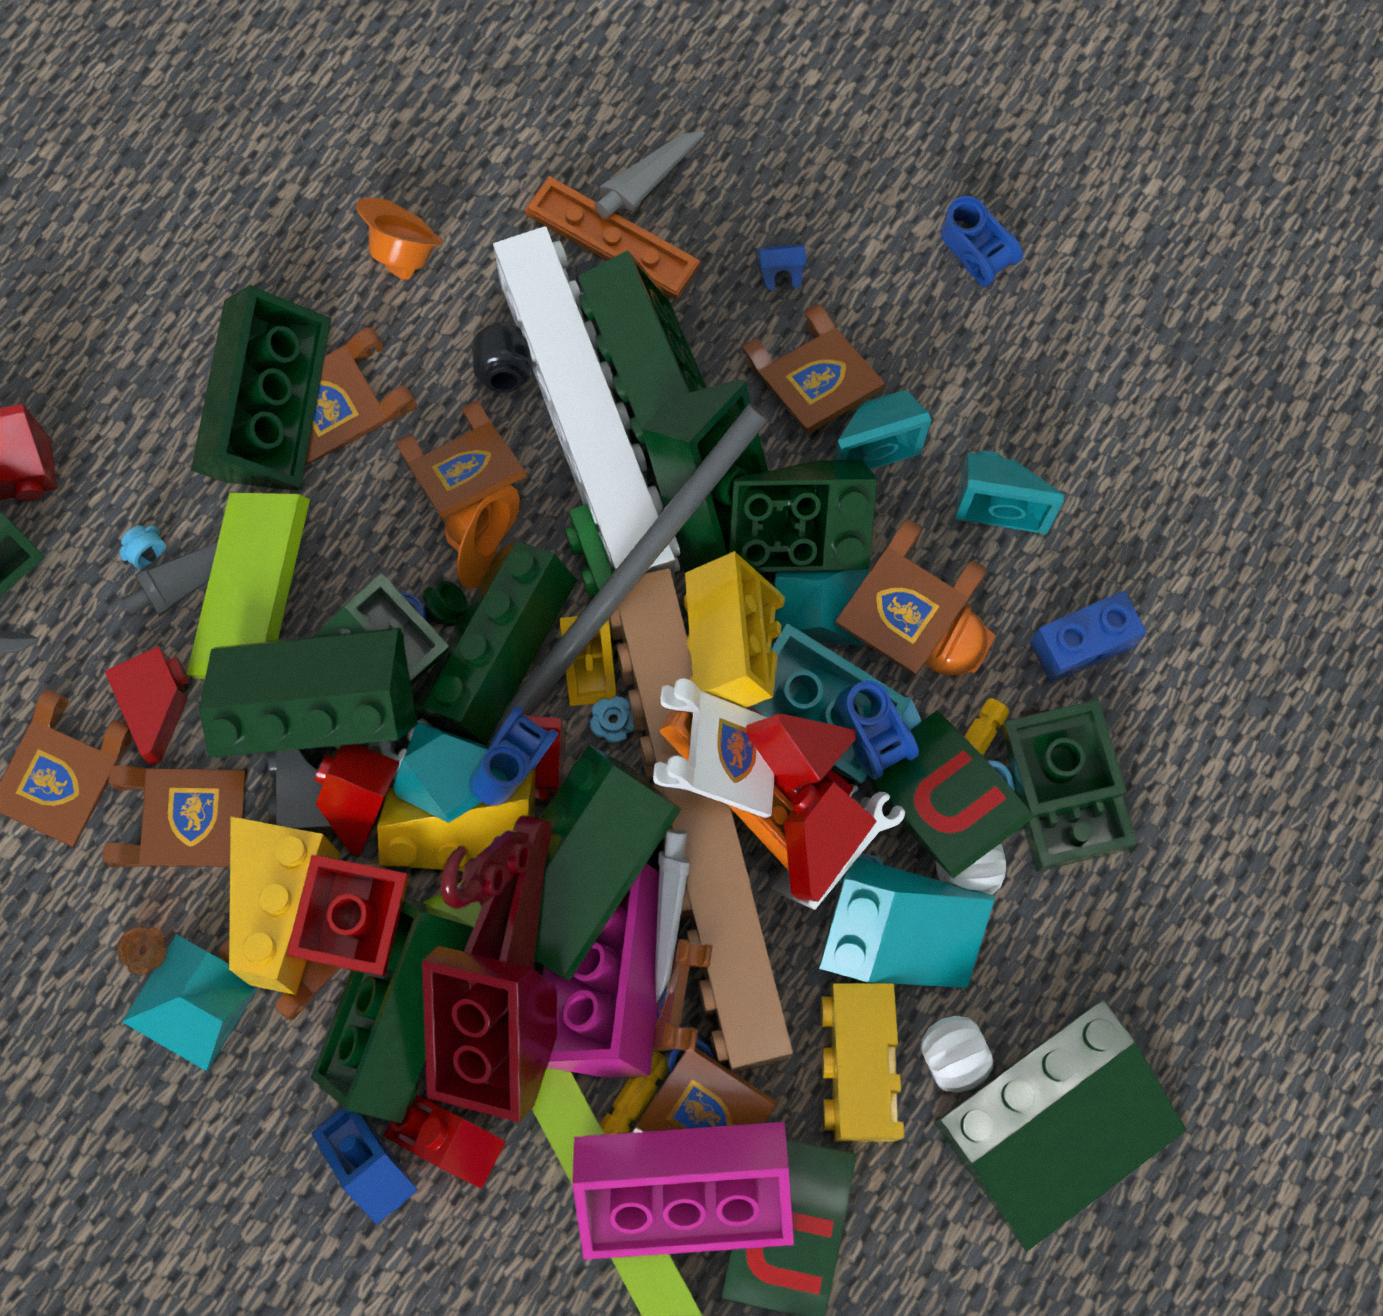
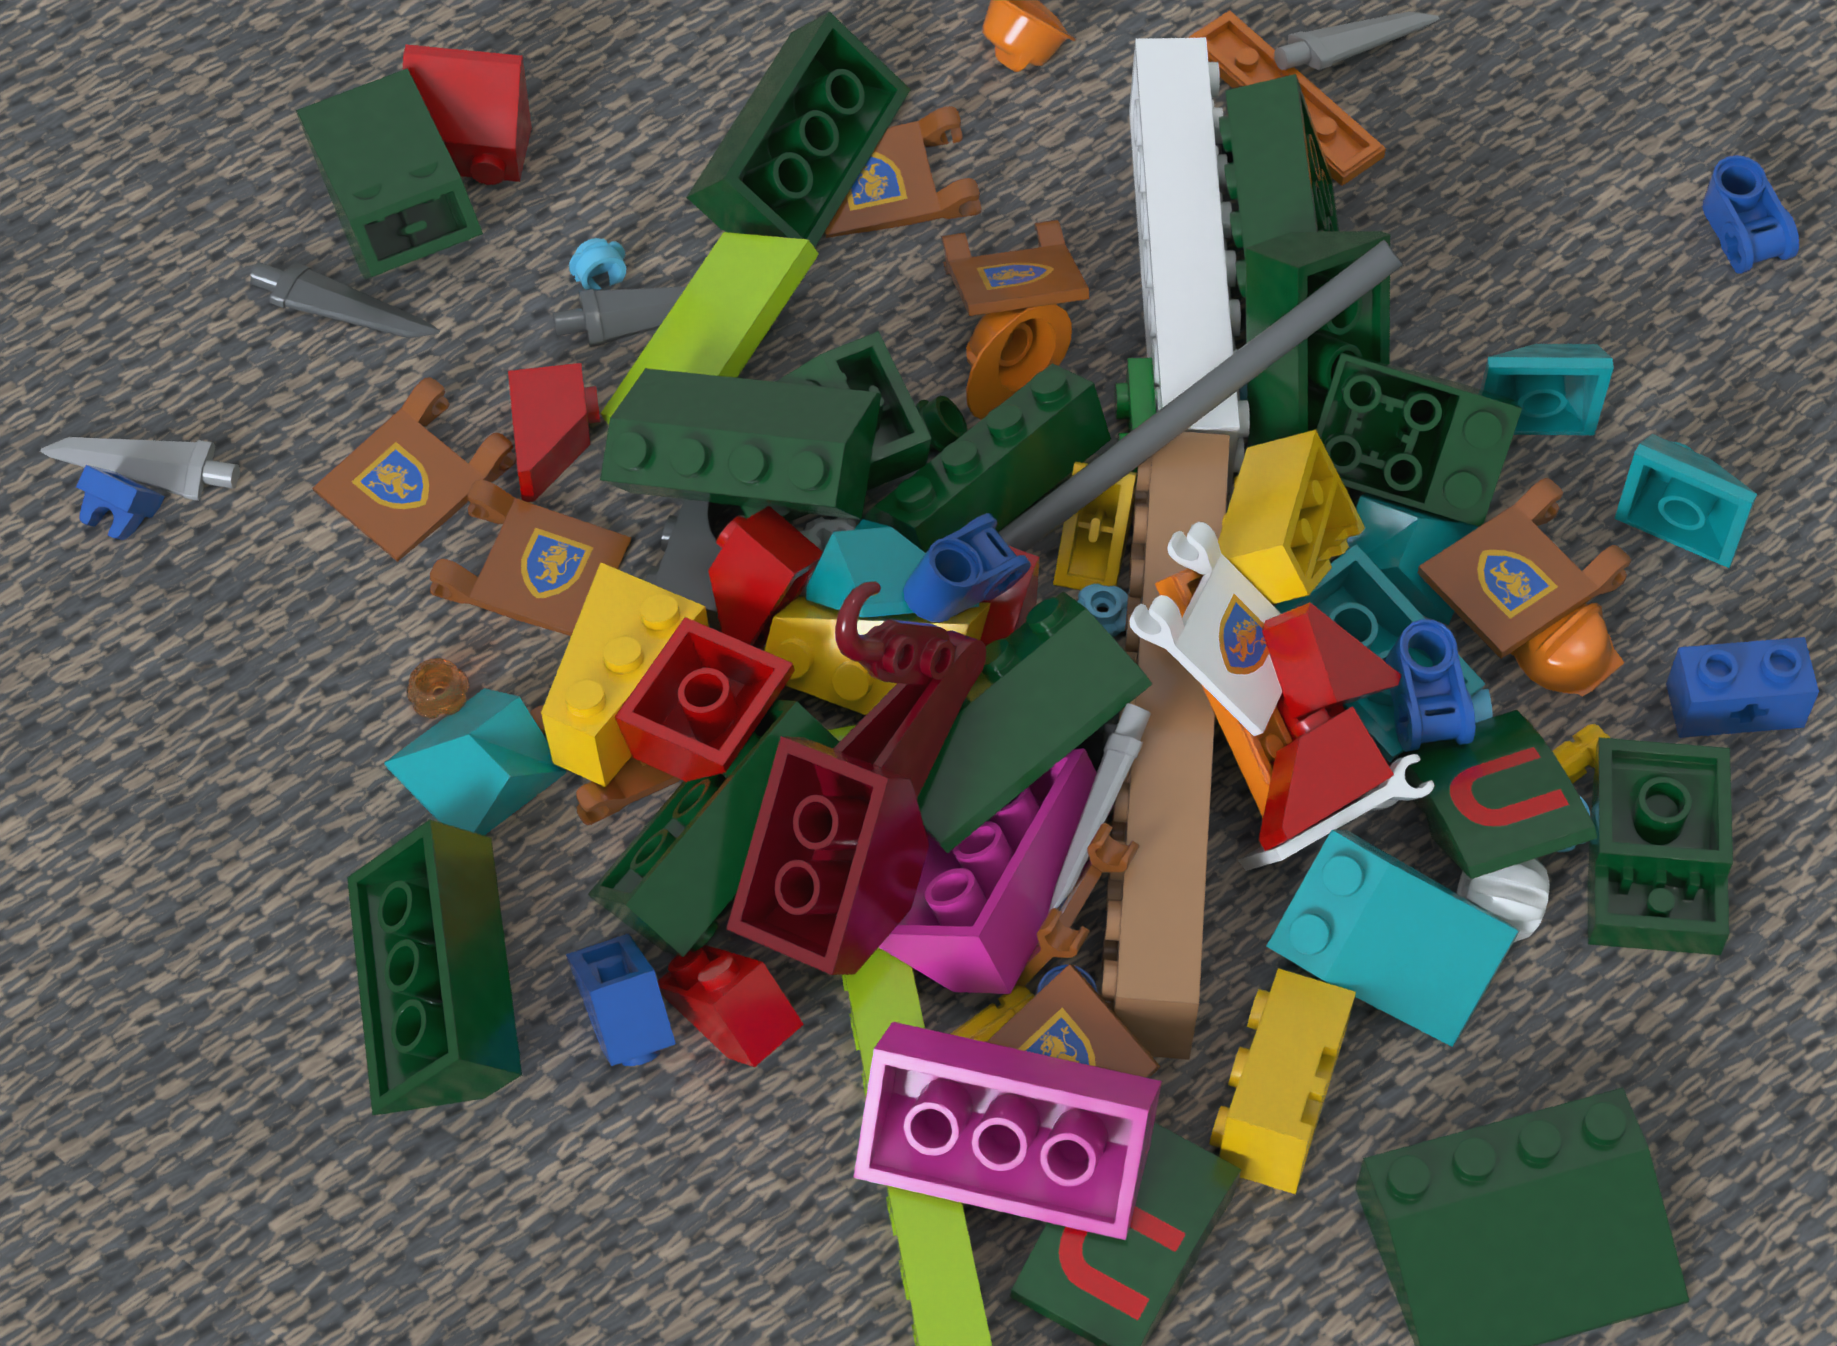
camera: 20 degrees right, 15 degrees down
(218, 1188) = (433, 971): none -> dark green slope
(501, 357) = (1103, 182): black head -> none
(781, 258) = (1487, 169): blue tile -> none
(819, 377) = (1490, 305): dark orange flag -> none
(957, 1054) = (1410, 1102): white piece -> none

